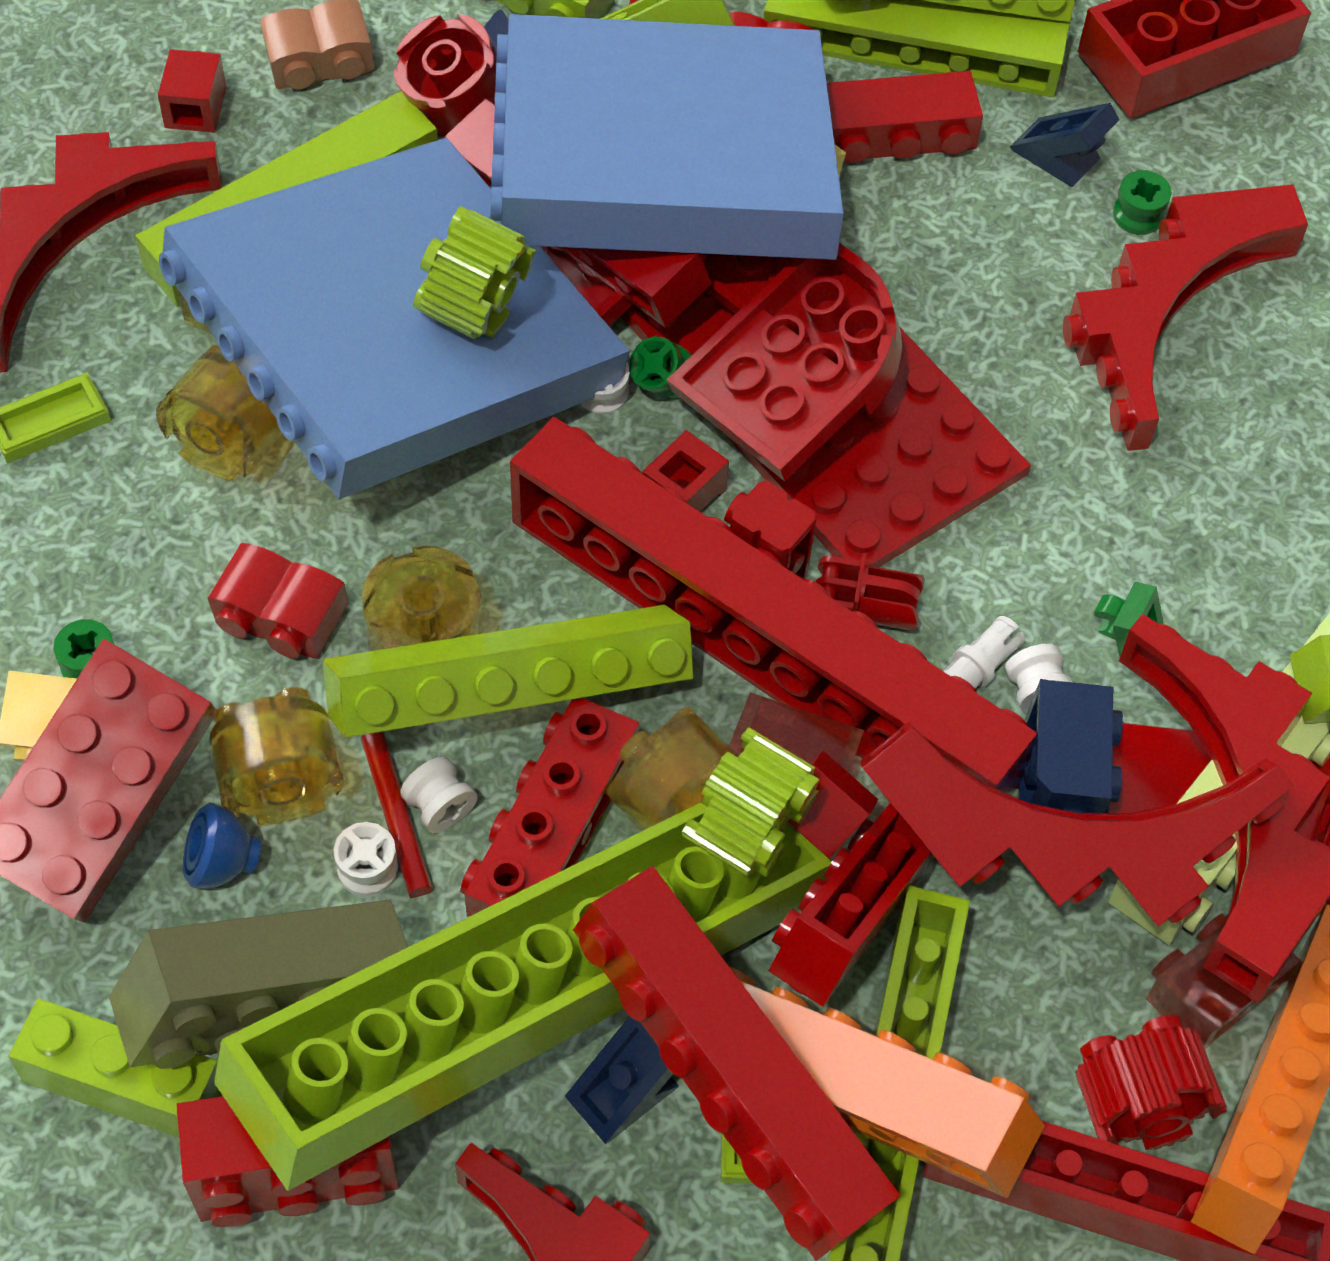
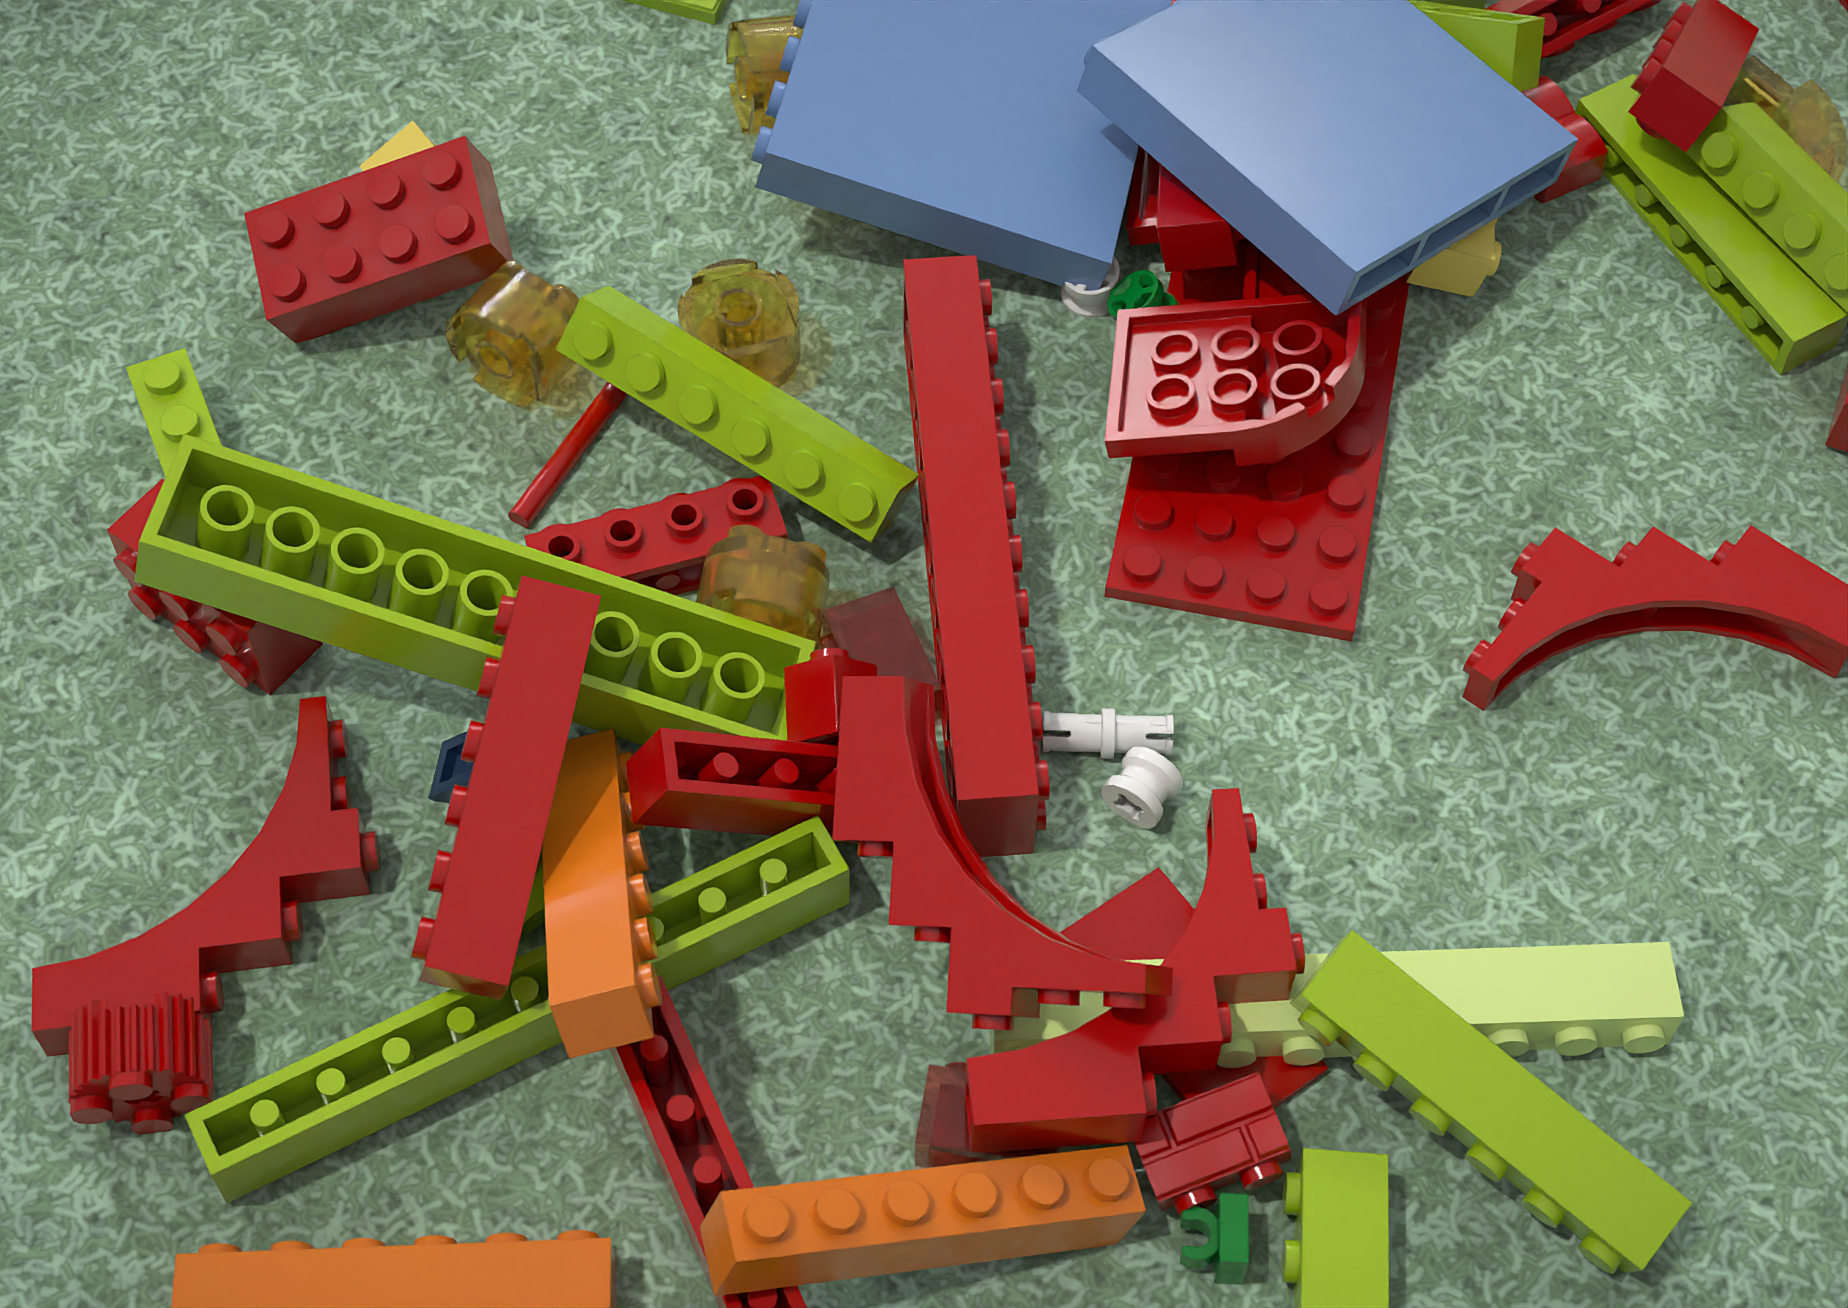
camera: 50 degrees right, 0 degrees up
(73, 639) = (508, 157): green wheel -> none
(218, 848) = (421, 366): blue brick -> none
(220, 976) = (278, 416): olive piece -> none
(278, 601) = (660, 237): red brick -> none
(365, 845) = (496, 449): white wheel -> none
(438, 794) = (603, 463): white wheel -> none
(473, 274) = (1021, 93): lime brick -> none
(691, 470) = (1053, 402): red brick -> none
(751, 803) = (747, 636): lime brick -> none
(775, 524) = (1046, 495): red brick -> none
(880, 593) = (1090, 607): red arm -> none
(905, 115) = (1600, 277): red brick -> none
(1067, 141) = (1727, 416): dark blue slope -> none
(1073, 748) = (1067, 847): dark blue hinge -> none
(1121, 614) = (1280, 815): green tile -> none
(1141, 202) = (1749, 507): green wheel -> none
(1149, 1084) = (819, 1120): red brick -> none

